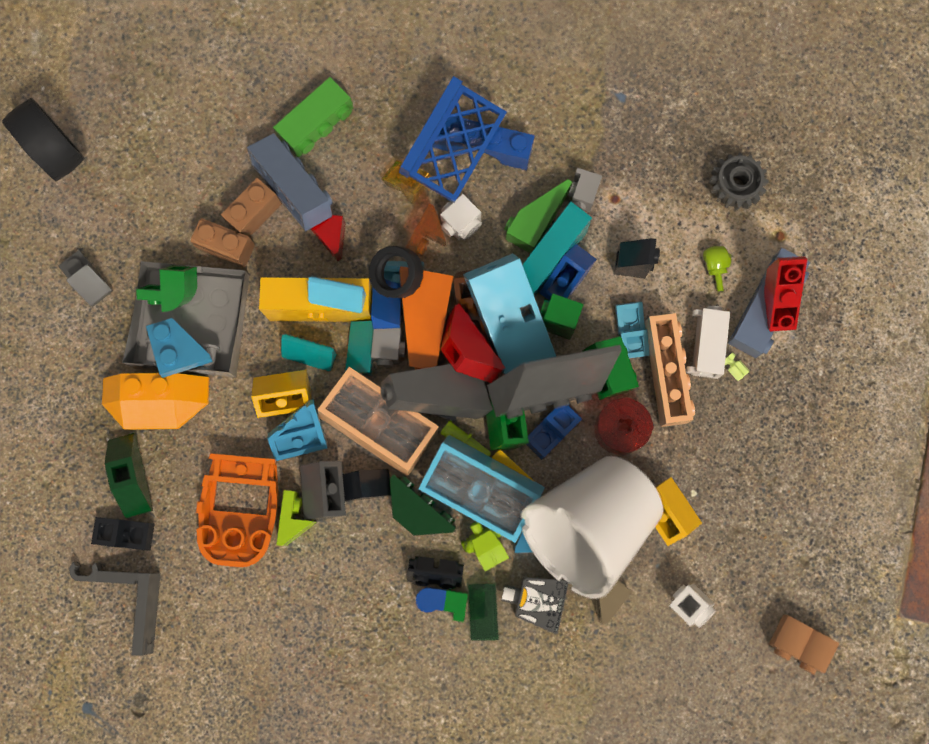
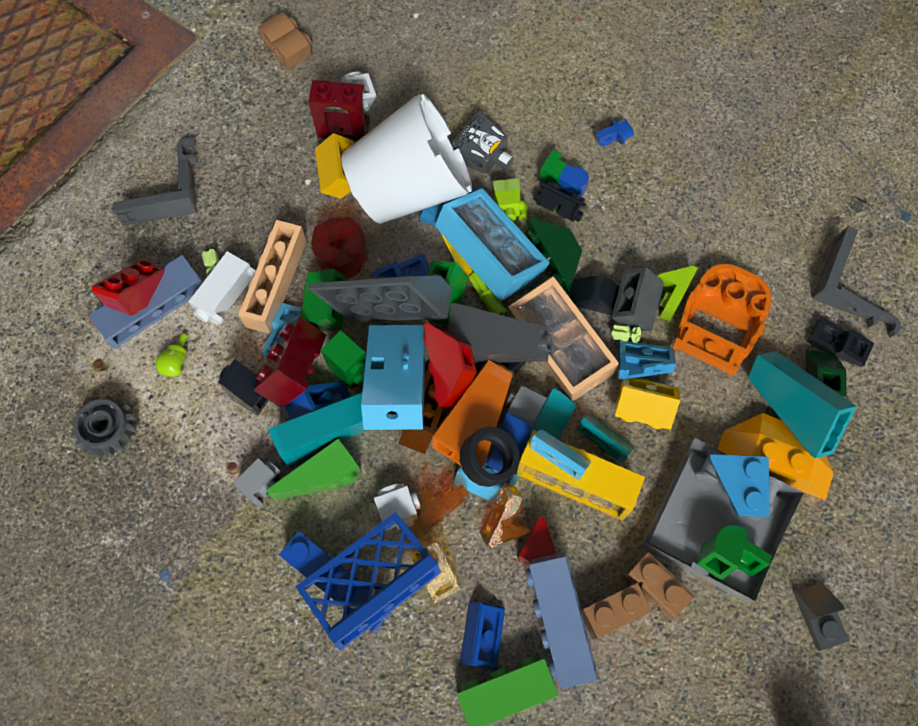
camera: 160 degrees left, 10 degrees down
(145, 445) = (802, 402): none -> teal slope
(325, 454) = (623, 333): none -> yellowish green piece
(350, 154) = (482, 635): none -> blue slope
(365, 240) = (501, 522): none -> clear orange slope
(405, 683) = (617, 131): none -> blue piece
(483, 612) = (531, 158): clear green slope -> none
(607, 292) = (290, 362): none -> dark red wedge
(697, 569) = (348, 97): none -> dark red panel
(804, 430) = (166, 204): none -> dark grey hinge

